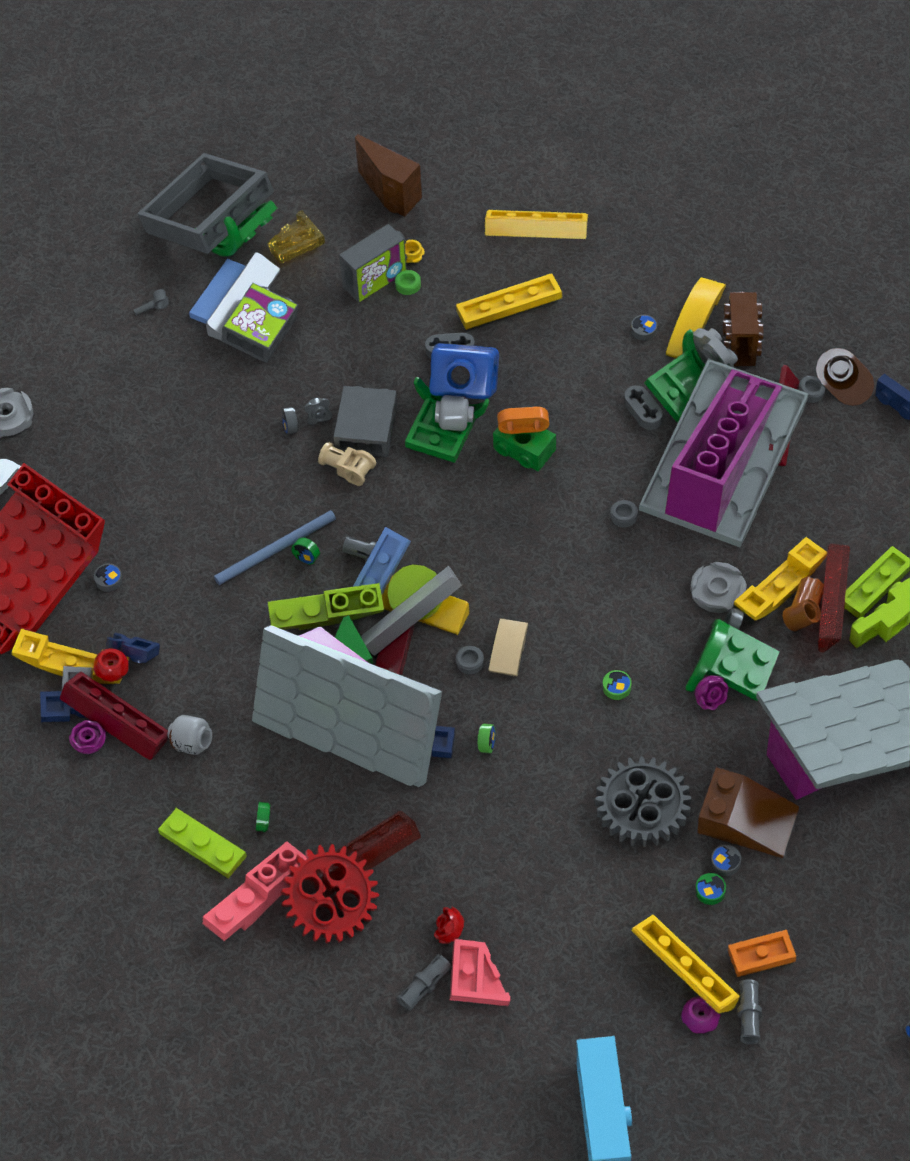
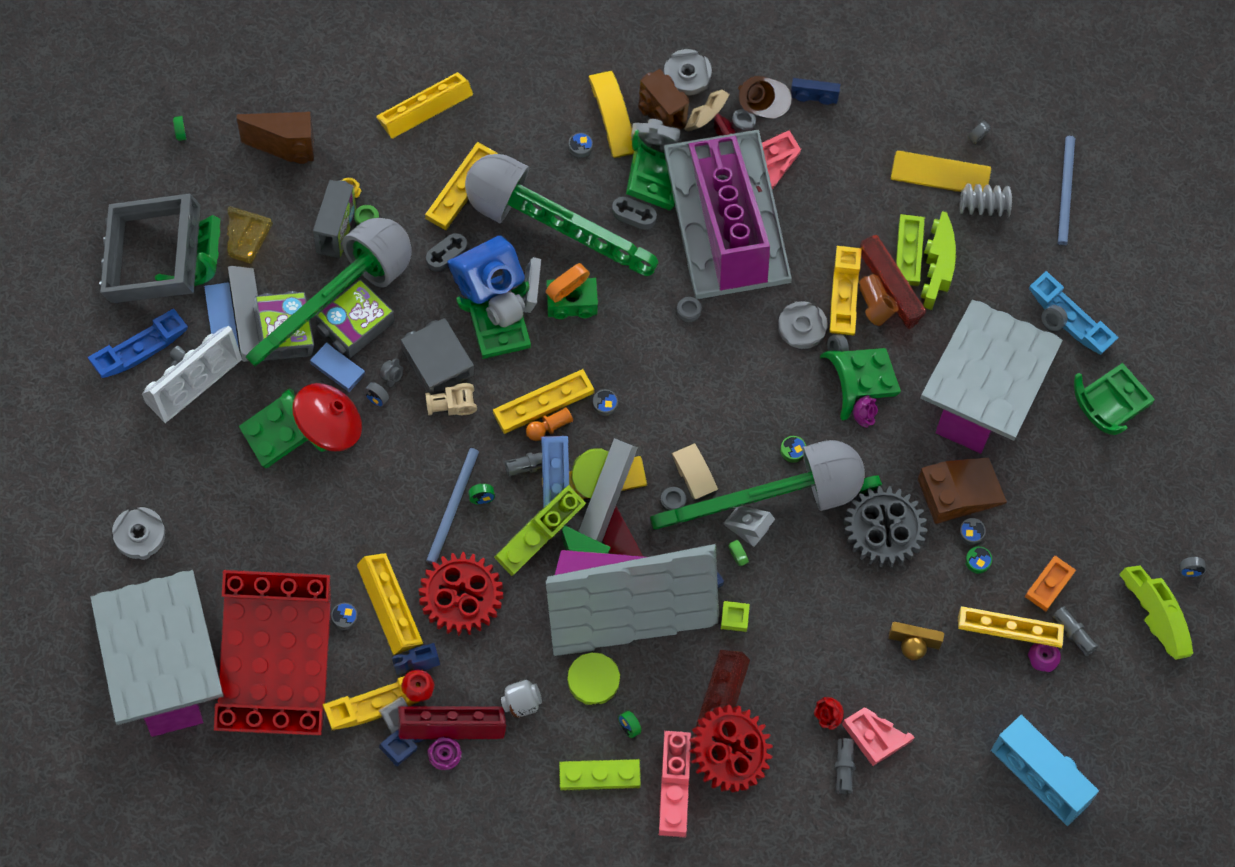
camera: 45 degrees left, 10 degrees up
(133, 276) = (139, 347): none -> blue slope
(150, 311) = (193, 374): none -> white slope
(154, 591) = (389, 603): none -> yellow slope
(185, 400) = (274, 431): none -> green piece
(195, 631) = (453, 614): none -> red gear
(222, 418) = (327, 417): none -> red dish
(268, 761) = (593, 678): none -> lime tile
(278, 383) = (337, 367): none -> medium blue tile
(314, 130) = (179, 128): none -> green tile
(323, 351) = (354, 319): none -> brick
(387, 305) = (375, 249): none -> piece
(416, 531) = (536, 429): none -> orange pin
(426, 510) = (543, 401): none -> yellow plate
(436, 789) = (735, 616): none -> lime plate
(480, 544) = (605, 402): none -> tile
(489, 417) = (532, 275): none -> light grey tile
(518, 722) = (749, 523): none -> light grey slope
(534, 315) = (497, 185): none -> piece
(585, 916) = (915, 639): none -> pearl gold tile
(621, 717) = (832, 472): none -> piece
(660, 754) = (871, 482): none -> green tile
(776, 360) = (707, 112): none -> tan slope
(789, 333) = (695, 63): none -> light grey plate
(815, 434) = (779, 155): none -> coral wing
(852, 1050) = (1165, 615): none -> lime slope

